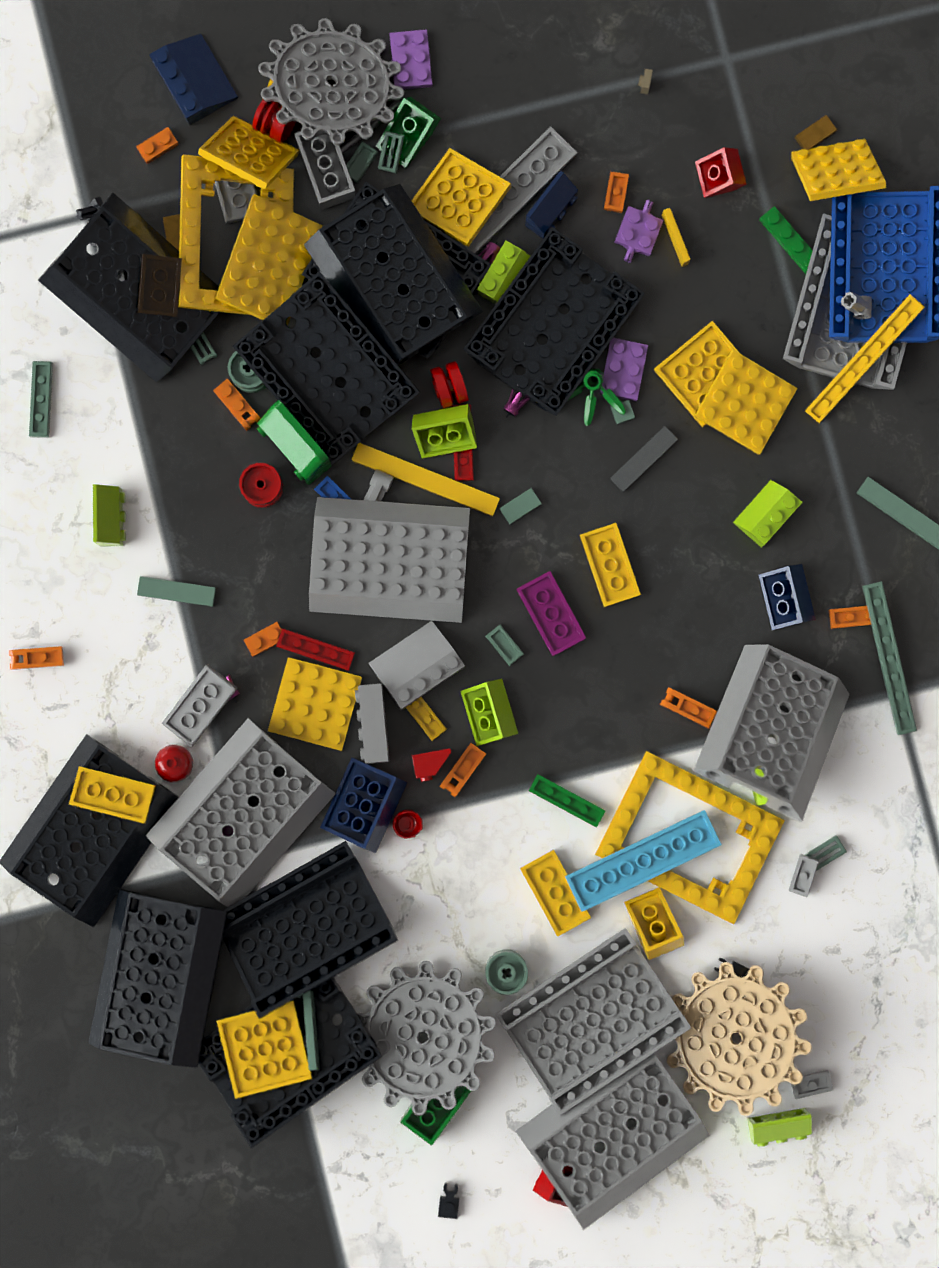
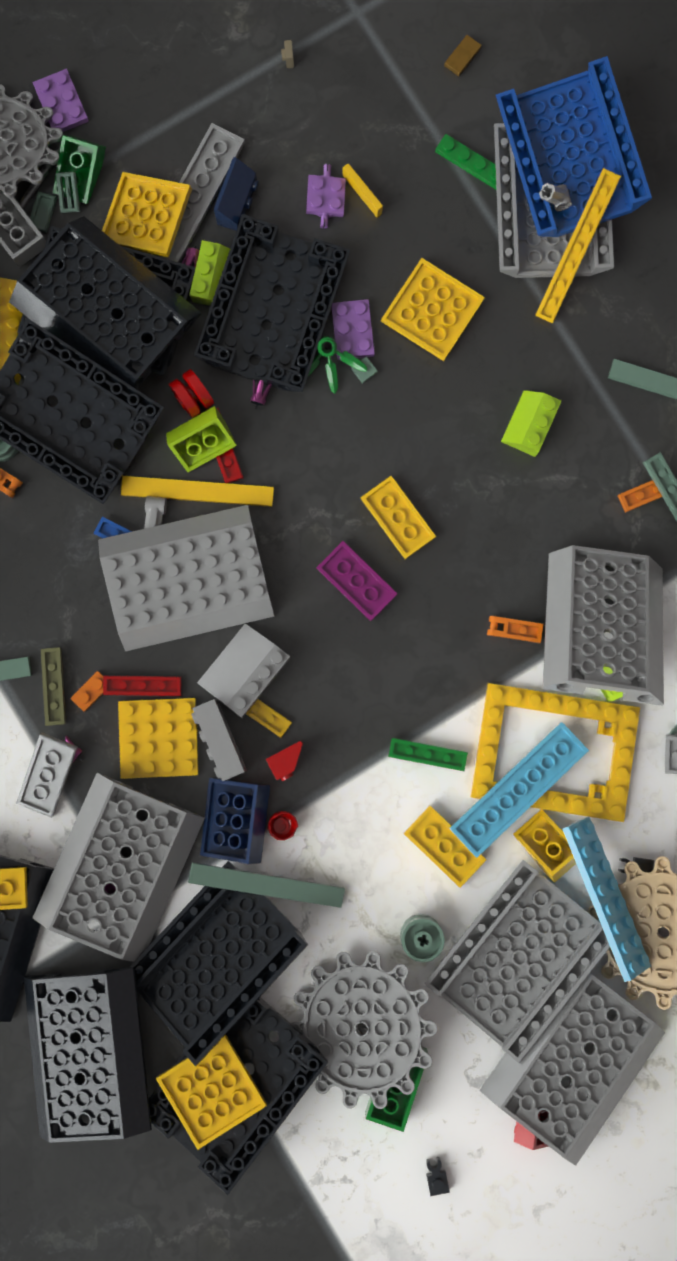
camera: 20 degrees left, 0 degrees up
(173, 763) = (39, 838): red cylinder -> none
(230, 623) = (53, 686): none -> olive plate
(264, 496) = (30, 549): red wheel -> none
(294, 442) = (59, 494): windscreen -> none
(311, 1031) = (252, 1059): sand green tile -> none
(375, 875) = (266, 885): none -> sand green tile
(463, 769) = (319, 755): orange plate -> none
(489, 712) = (327, 693): lime slope -> none
(504, 645) = (321, 624): sand green tile -> none
(520, 506) = (295, 488): sand green tile -> none
(616, 192) = (293, 165): orange plate -> none
(643, 459) = (398, 407): dark grey tile -> none
(693, 988) = (607, 898): none -> medium azure plate
(720, 172) = (385, 117): red slope -> none
(745, 402) = (477, 324): yellow plate -> none
(787, 596) = (574, 495): dark blue slope -> none
(838, 170) = (495, 78): yellow plate -> none

